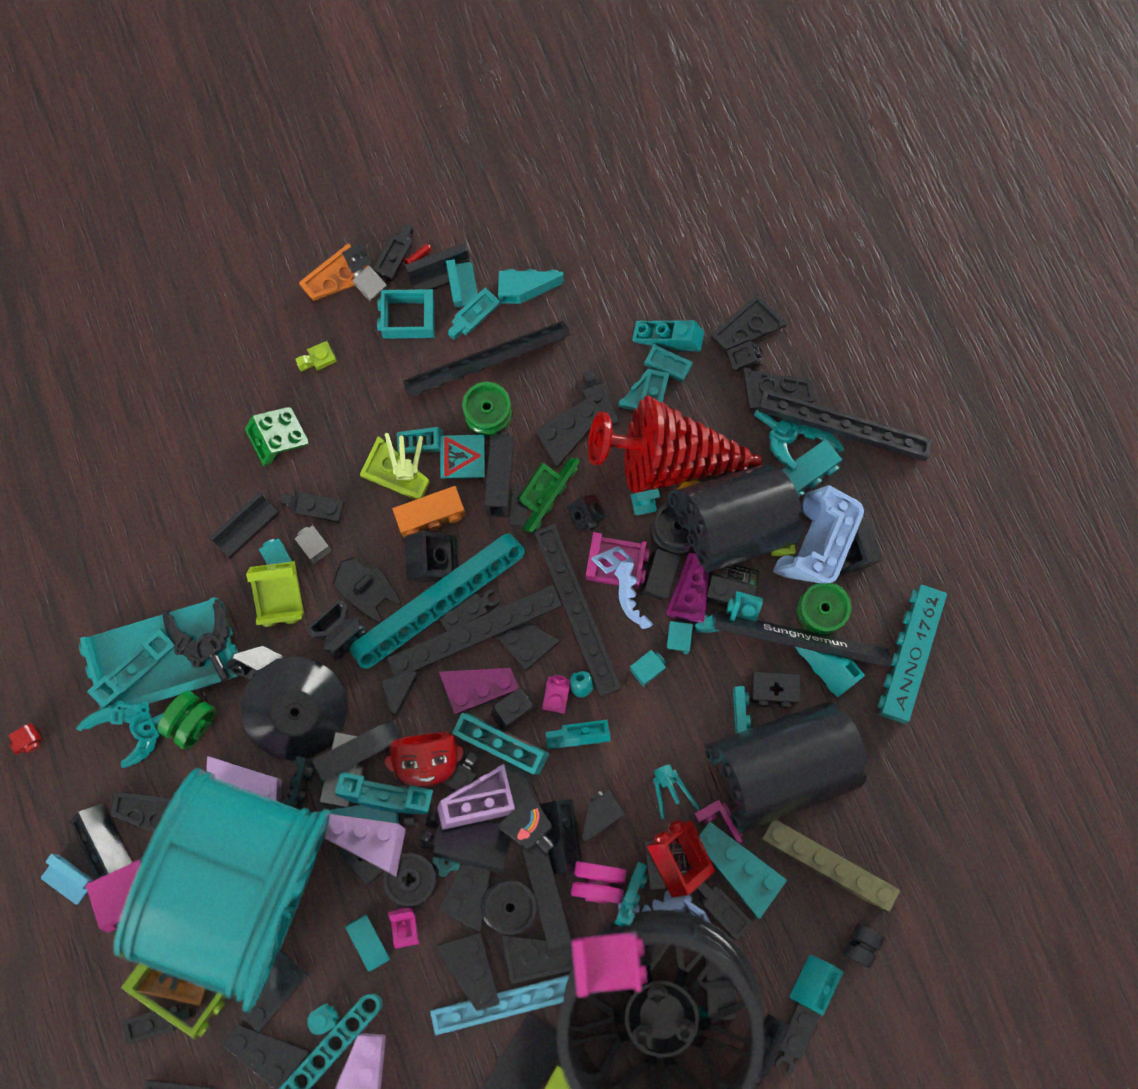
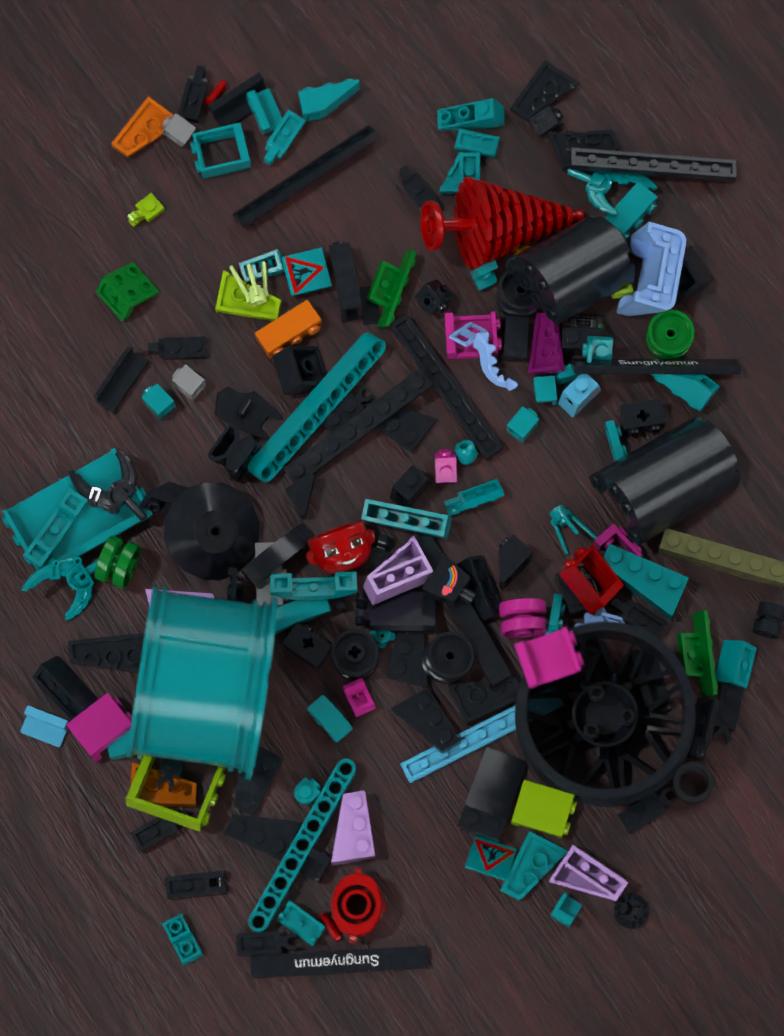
camera: 10 degrees left, 0 degrees up
(276, 593) = (167, 433): lime panel -> none
(356, 257) = (161, 108): black bracket -> none
(369, 839) = (311, 625): lavender wedge -> none
(476, 687) = (371, 477): magenta wing -> none
(483, 397) = (319, 211): green wheel -> none
(567, 430) = (398, 225): black wing -> none
(713, 649) = (580, 392): none -> medium azure torso
(777, 966) = (697, 654): none -> green bracket
(912, 654) = (759, 358): teal brick -> none

